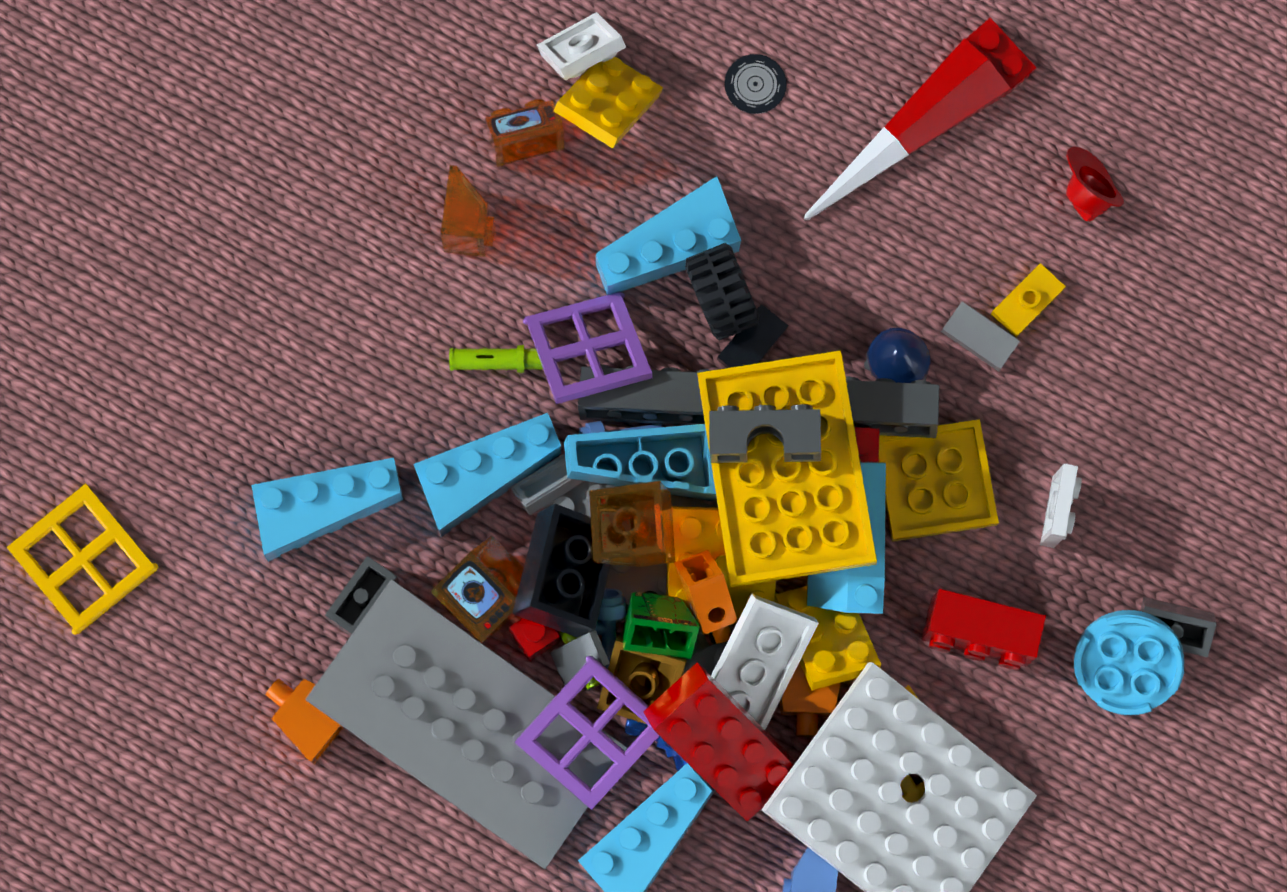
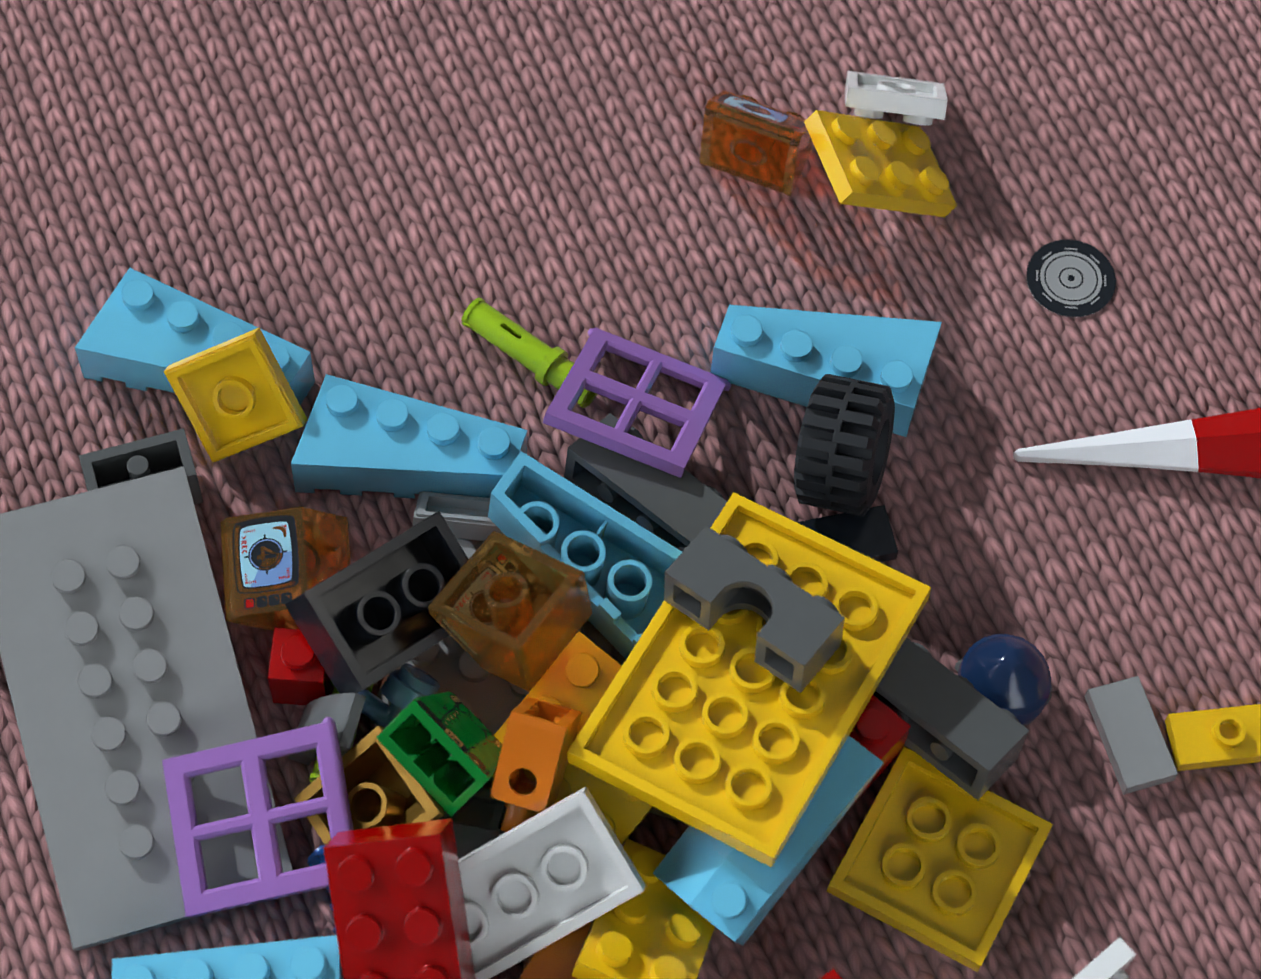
camera: 40 degrees right, 15 degrees down
(375, 513) = (236, 395): none -> yellow tile
(466, 218) = (608, 171): clear orange slope -> none

